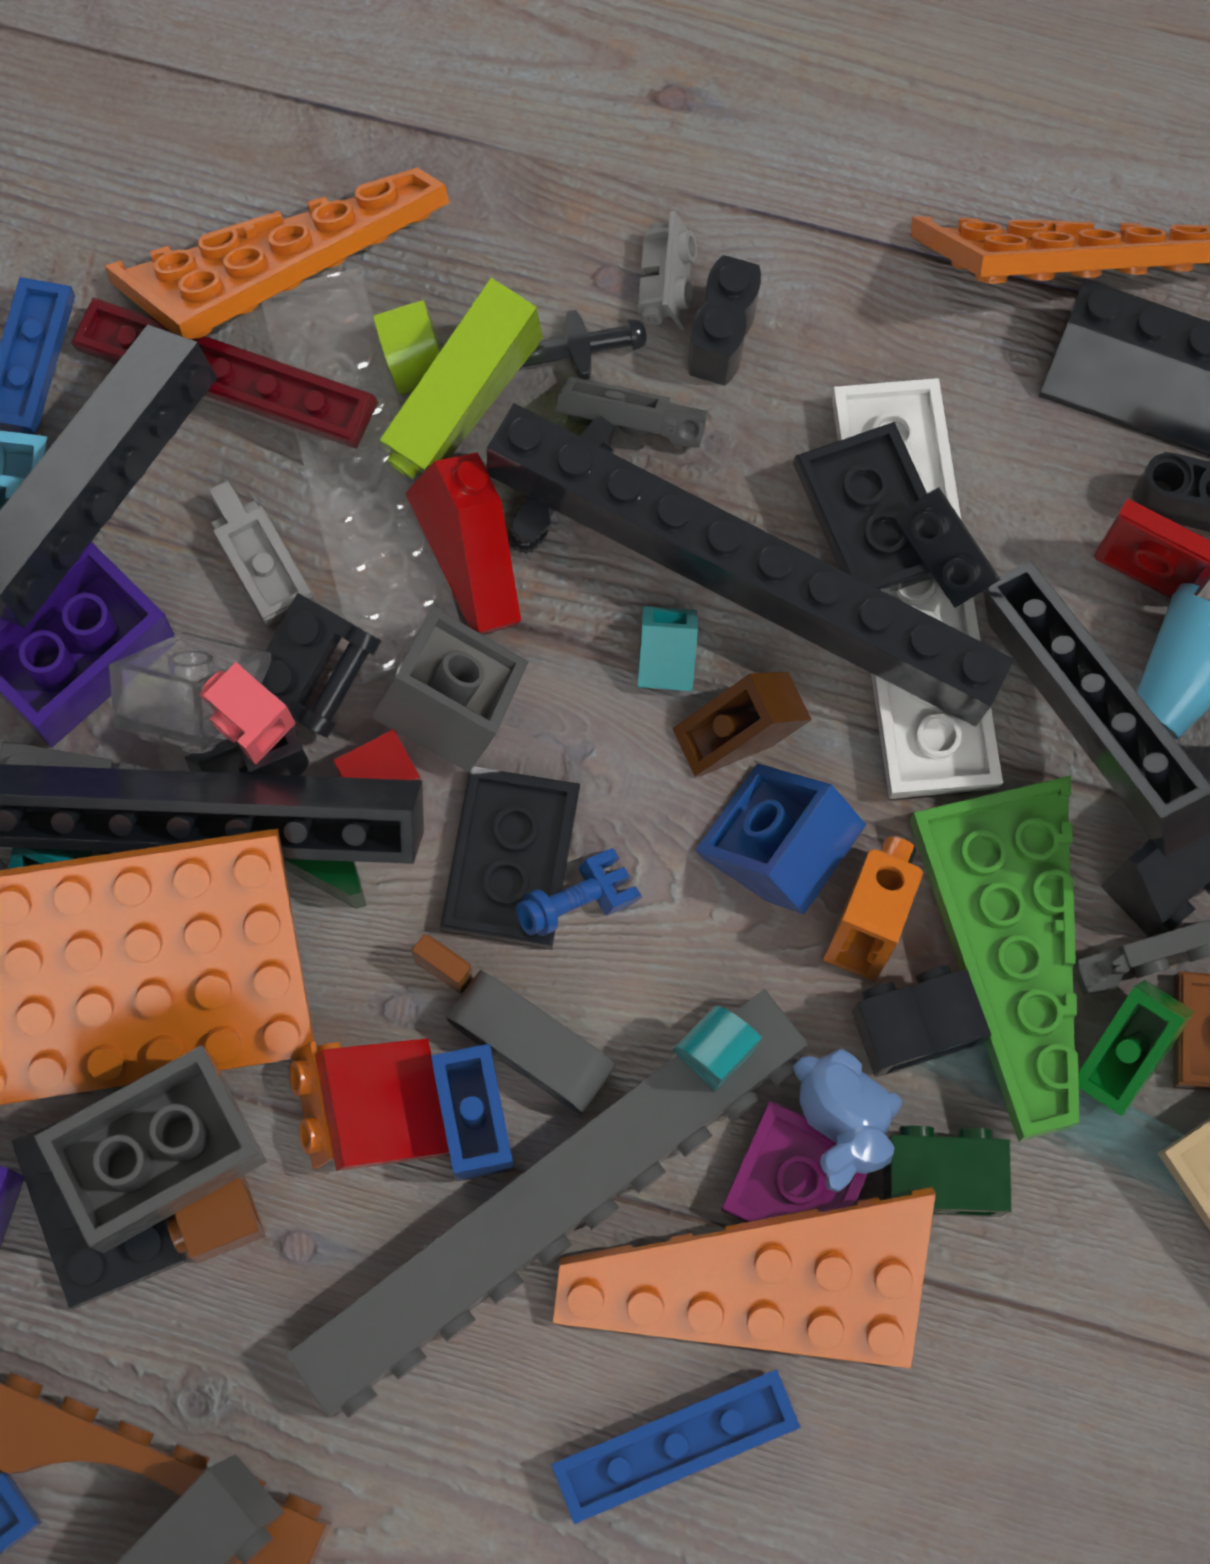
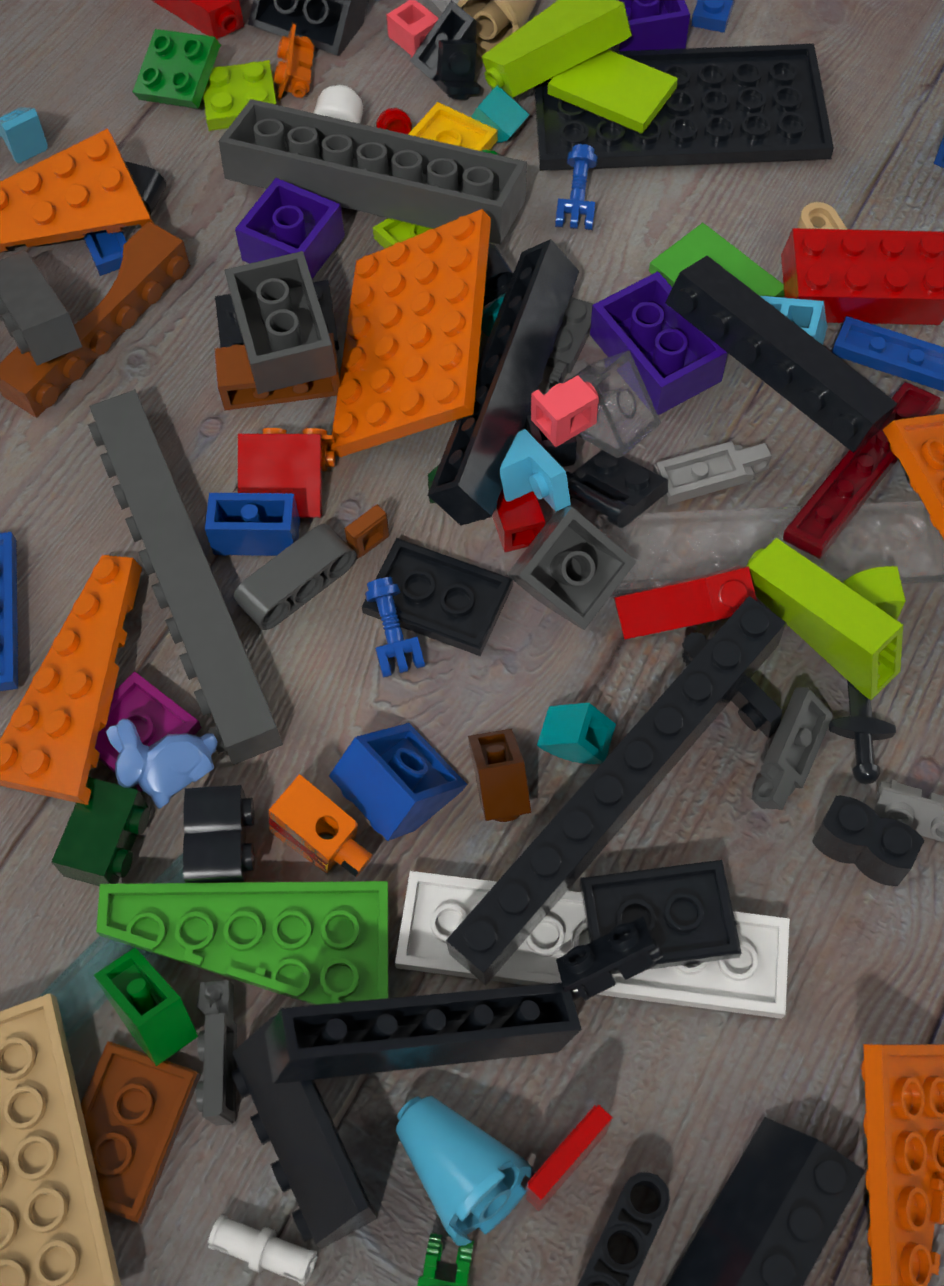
camera: 110 degrees right, 10 degrees down
(329, 746) = (532, 468): none -> medium azure slope
(718, 1046) = (237, 673): teal brick -> none

